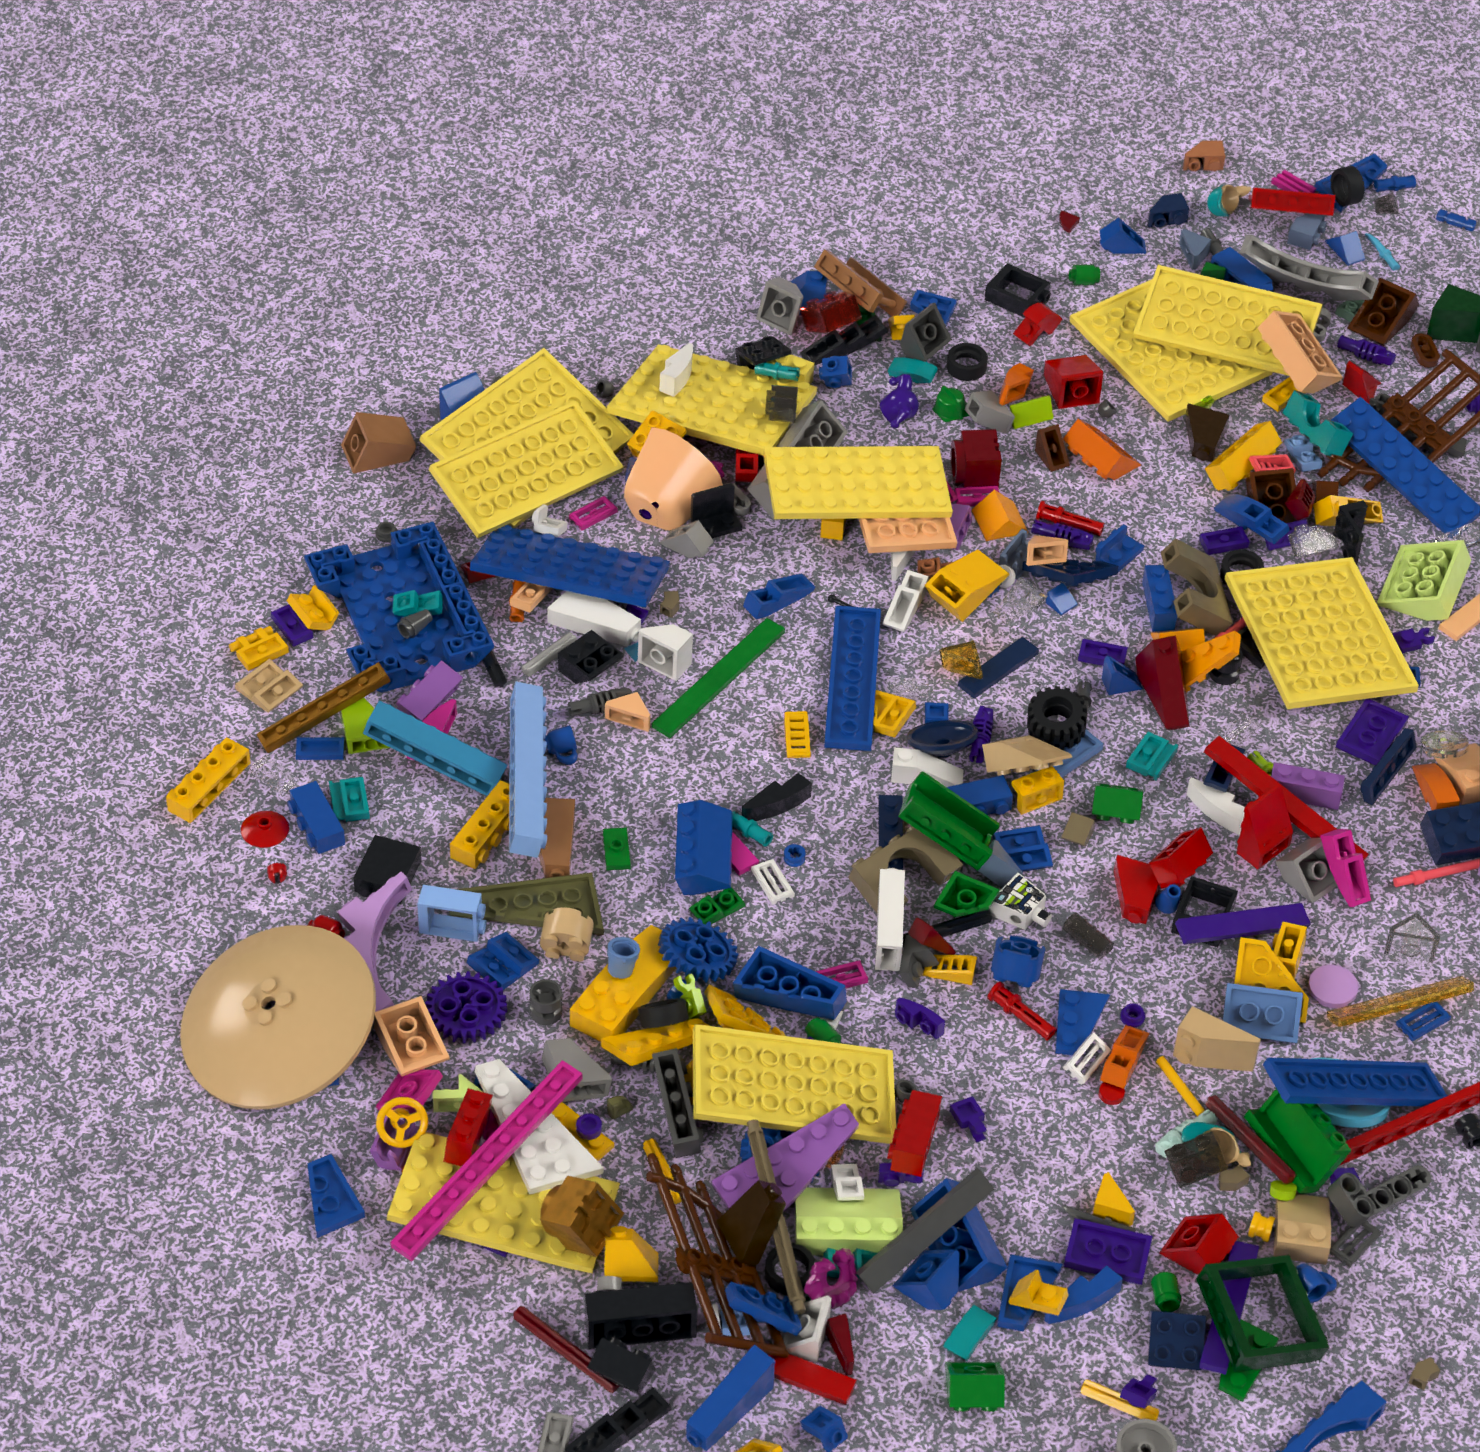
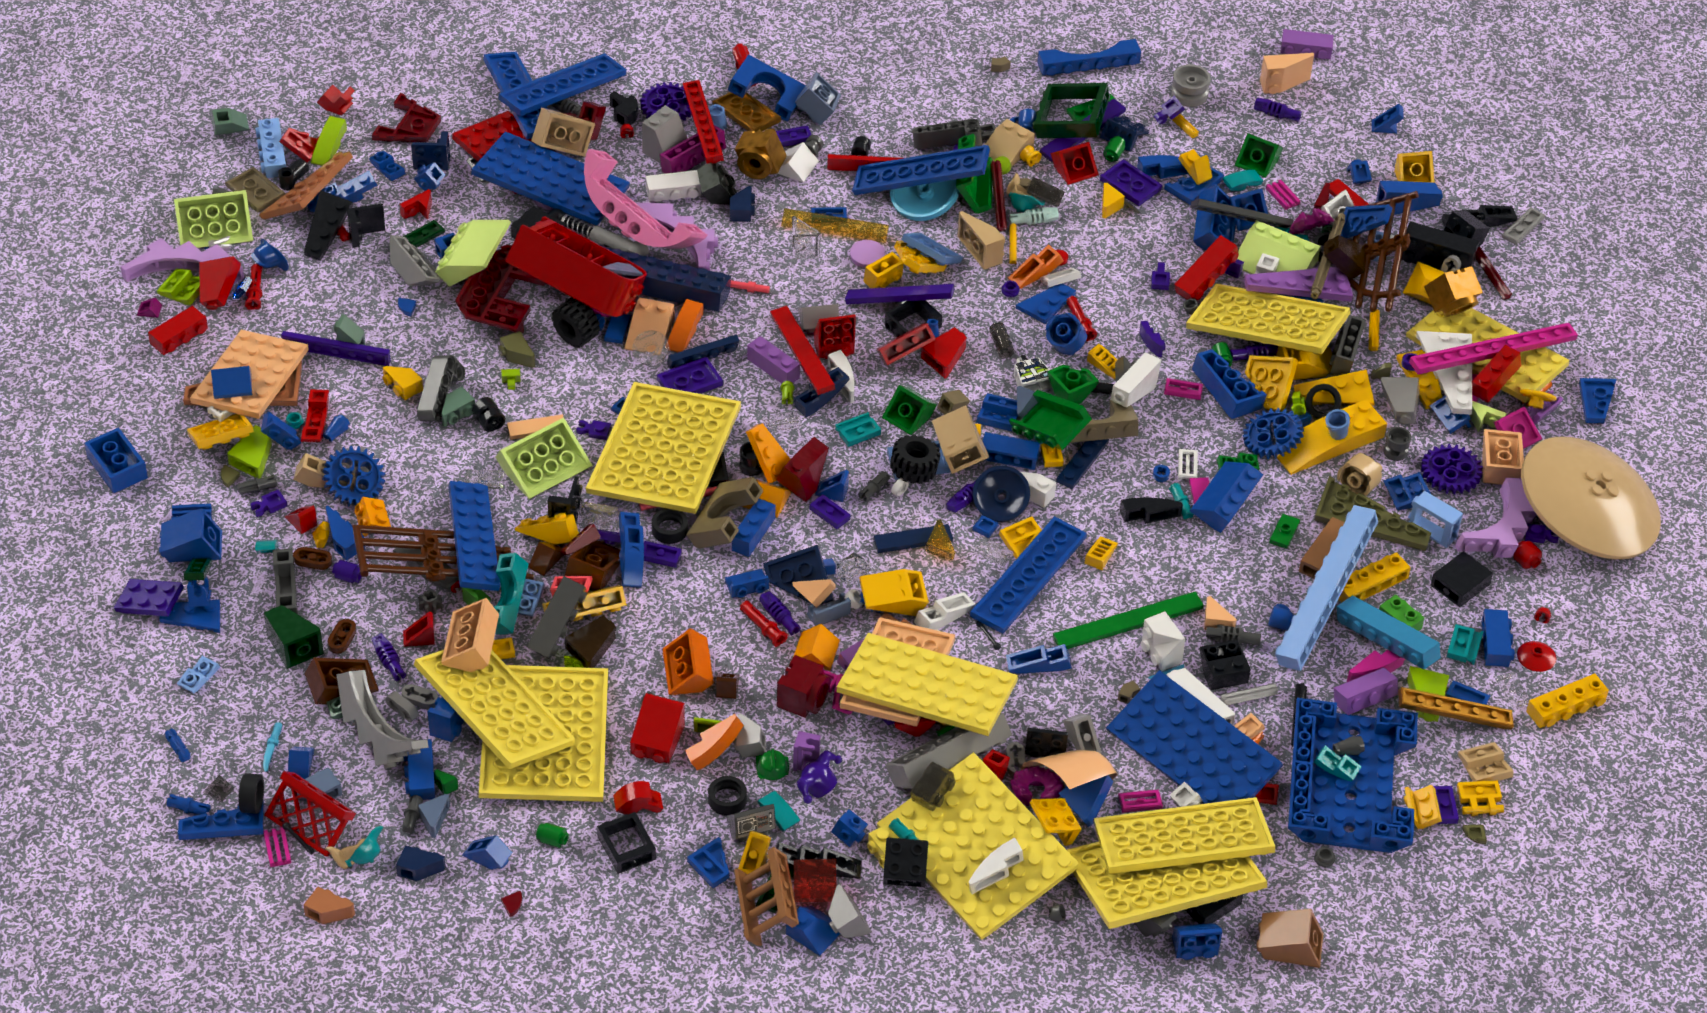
camera: 150 degrees left, 0 degrees up
(248, 617) = (1476, 833): none -> olive tile
(433, 796) = (1403, 612): none -> bright green brick
(884, 1328) = (1285, 192): none -> dark pink tile
(927, 408) = (805, 749): none -> medium lavender hinge
(929, 937) = (1123, 366): dark red slope -> none
(1248, 414) = (556, 618): none -> dark grey brick
(1346, 866) = (799, 297): dark pink slope -> none

